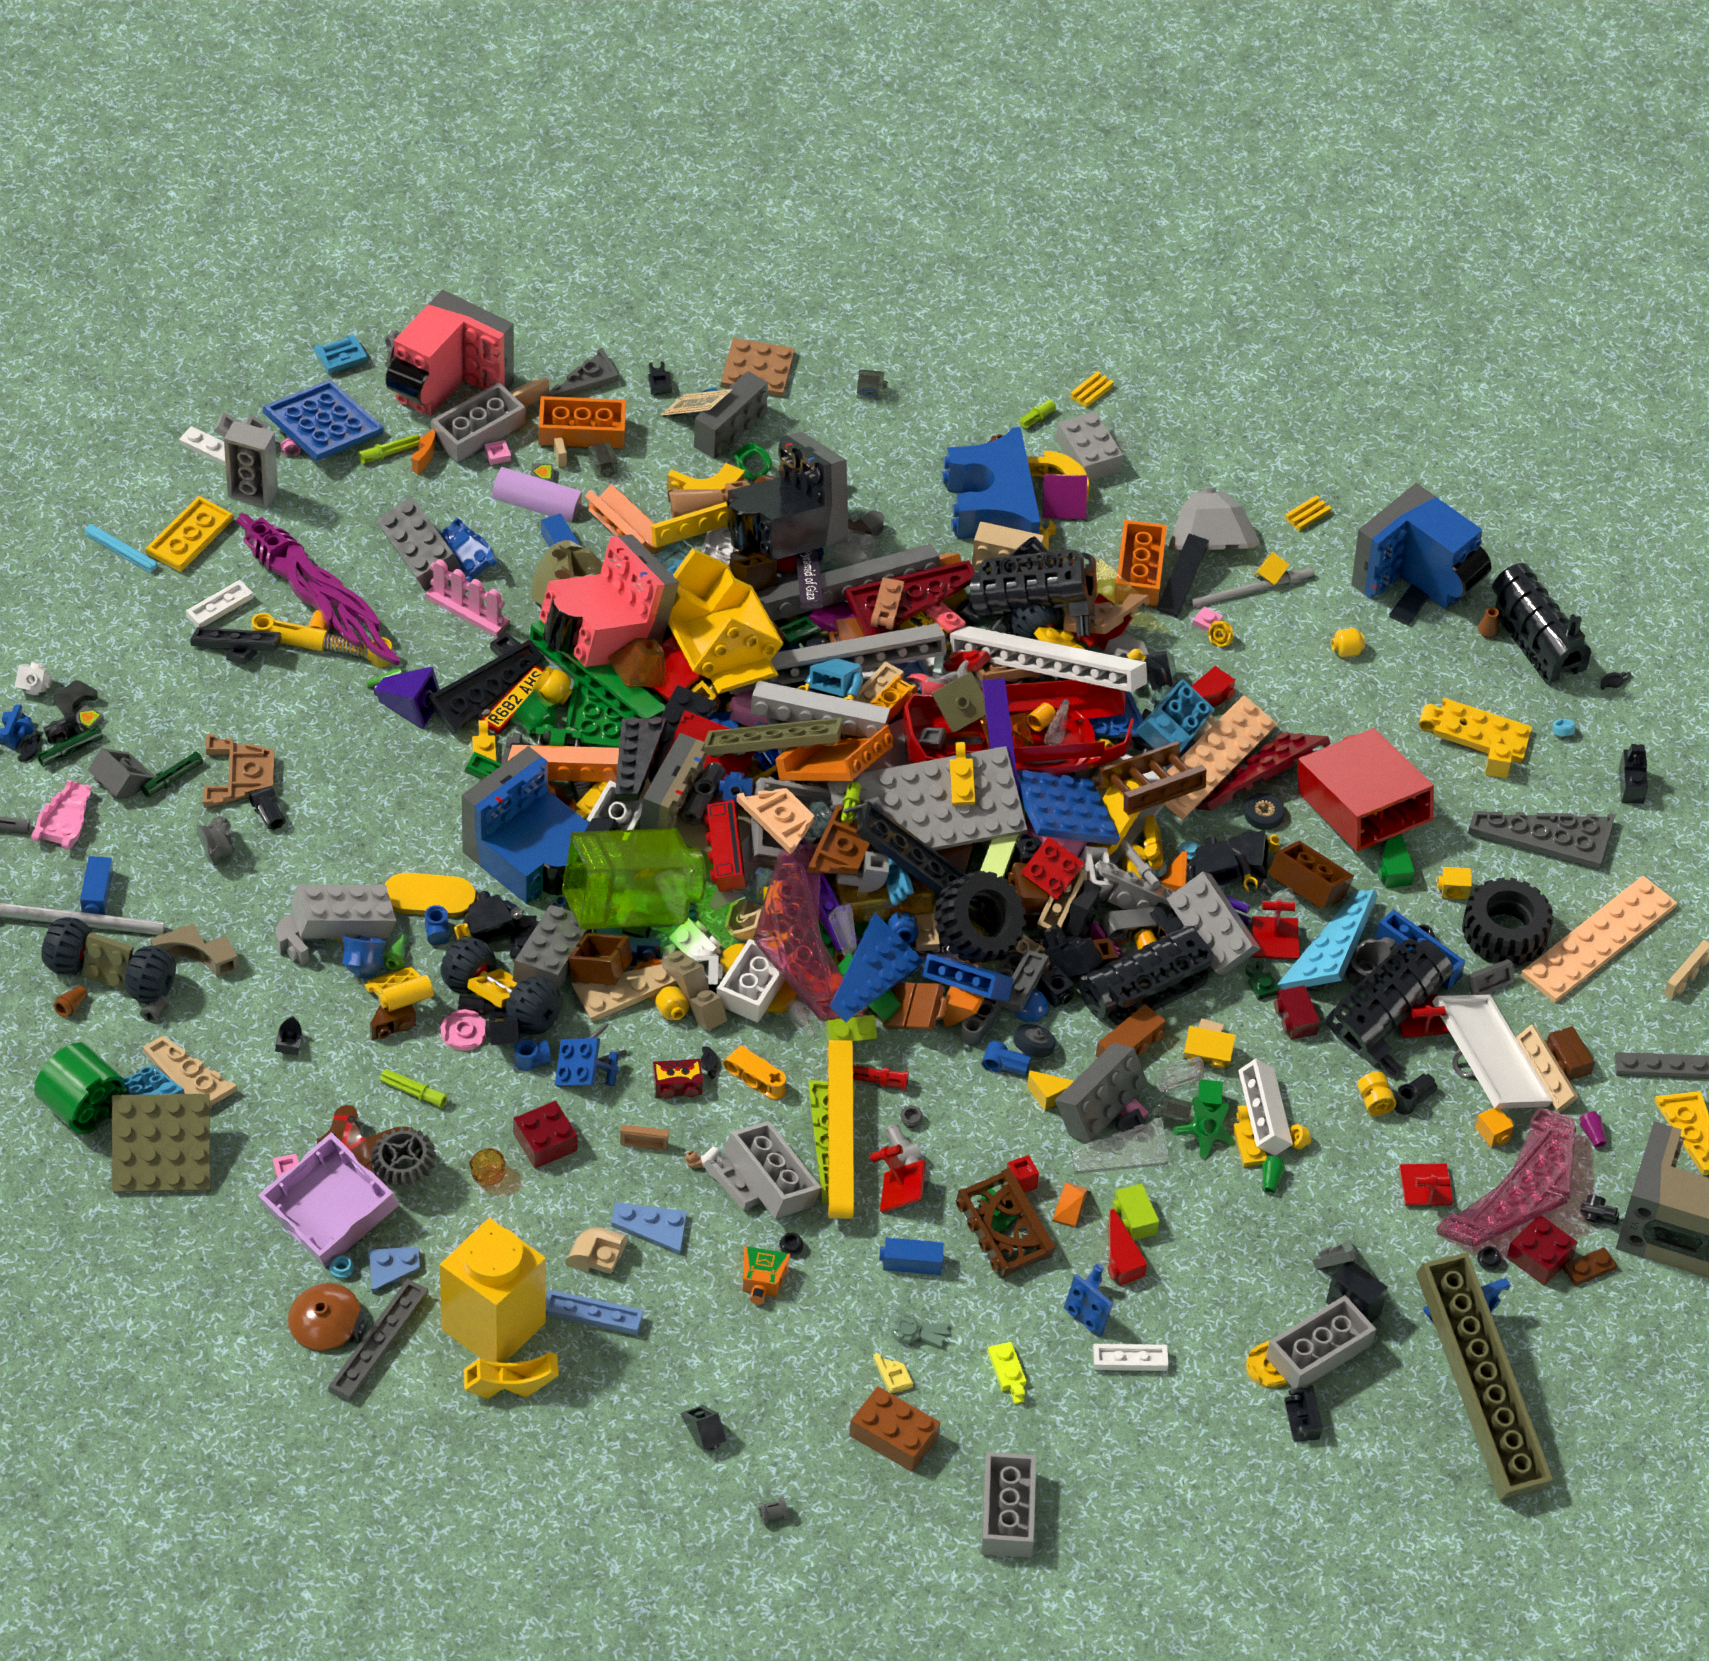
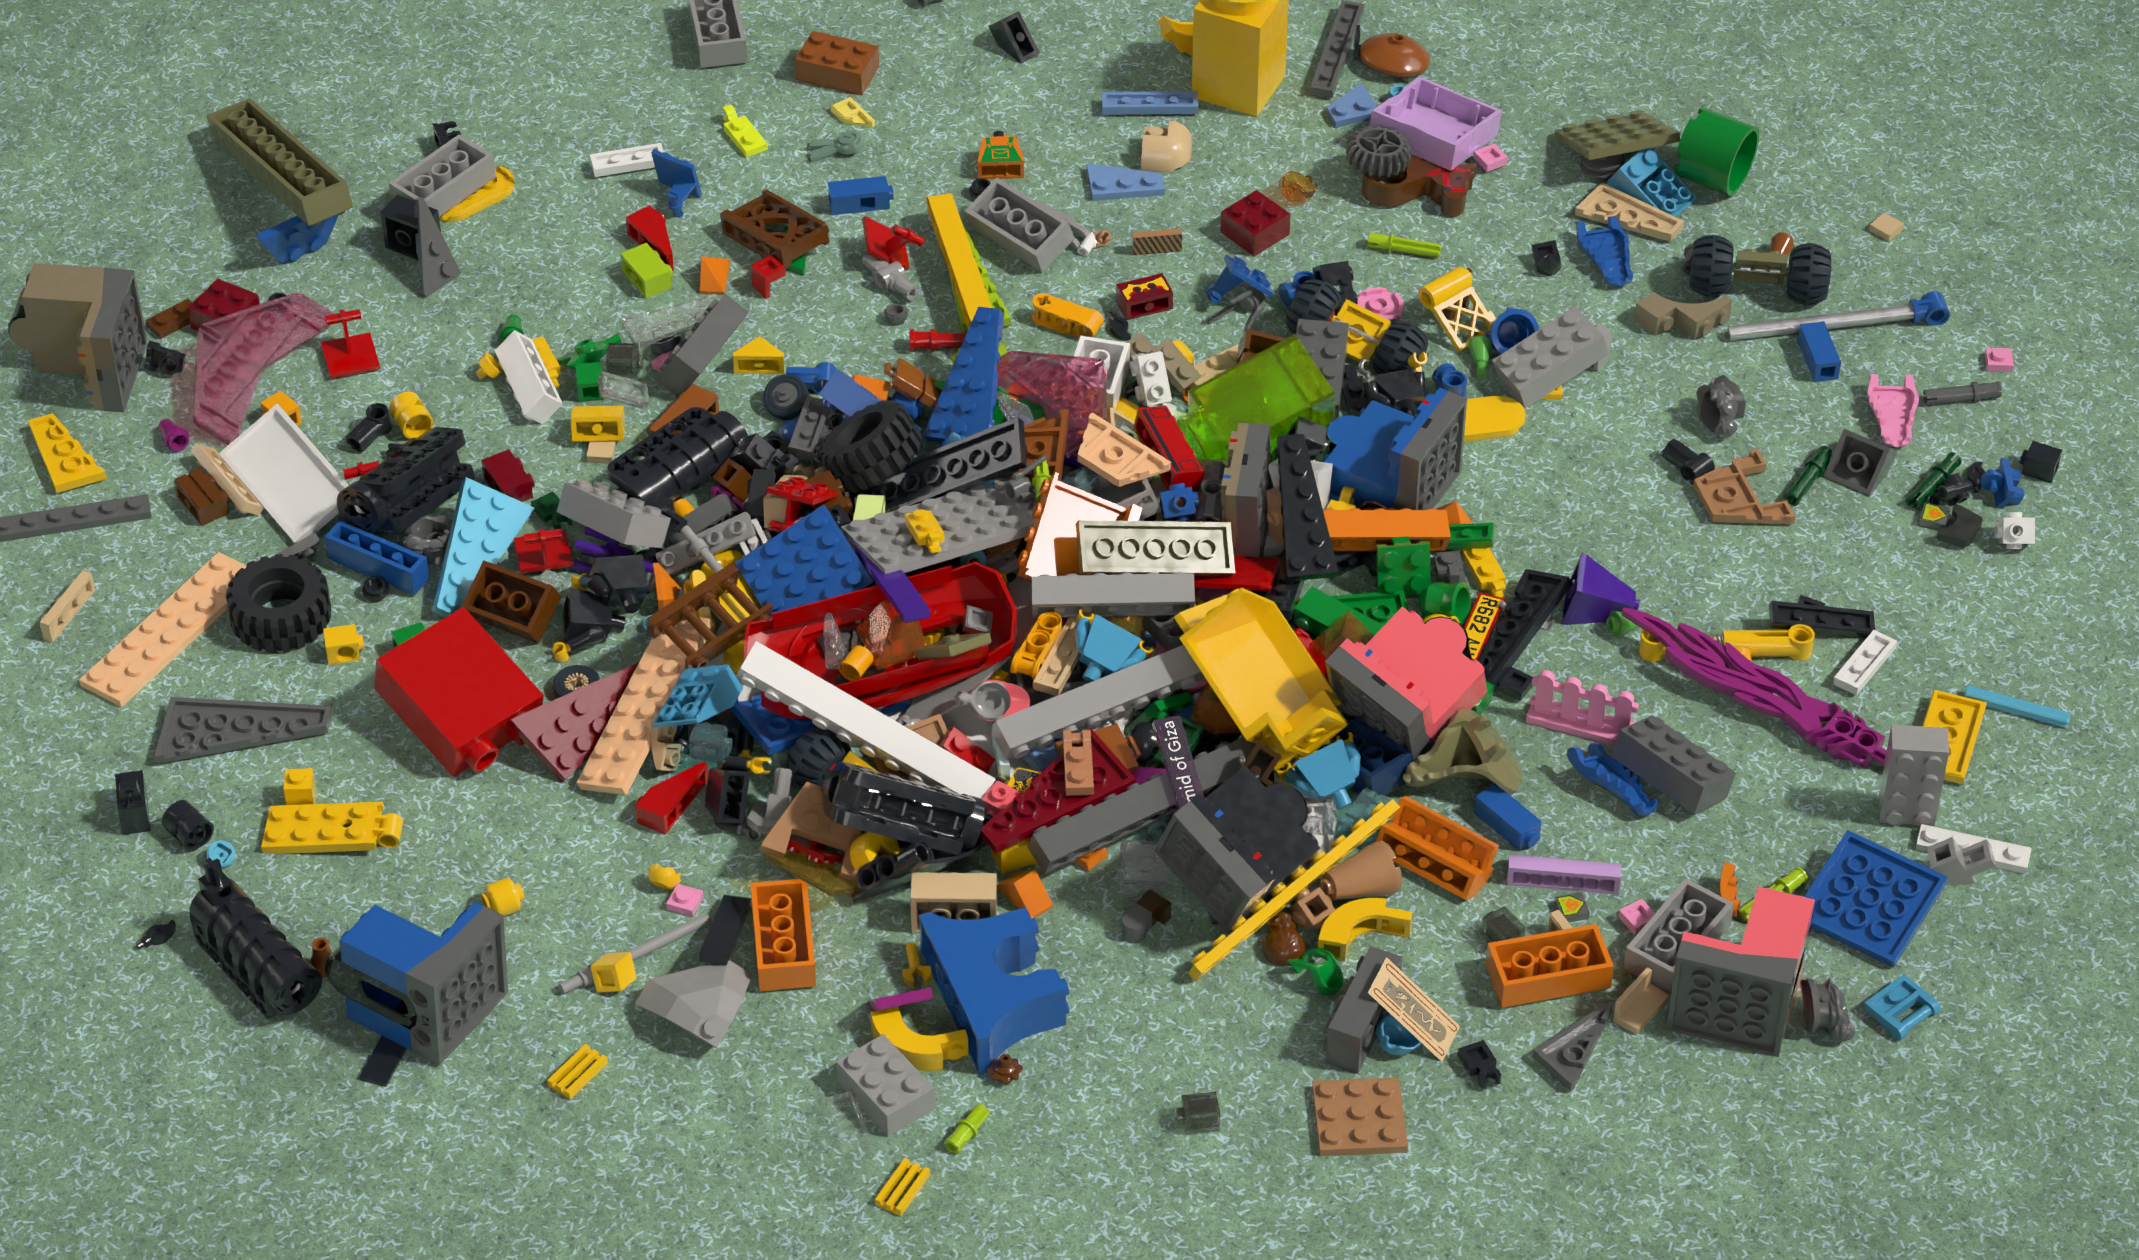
camera: 170 degrees right, 5 degrees down
(229, 1035) = (1607, 250): none -> blue animal
(1589, 749) = (187, 825): none -> black wheel

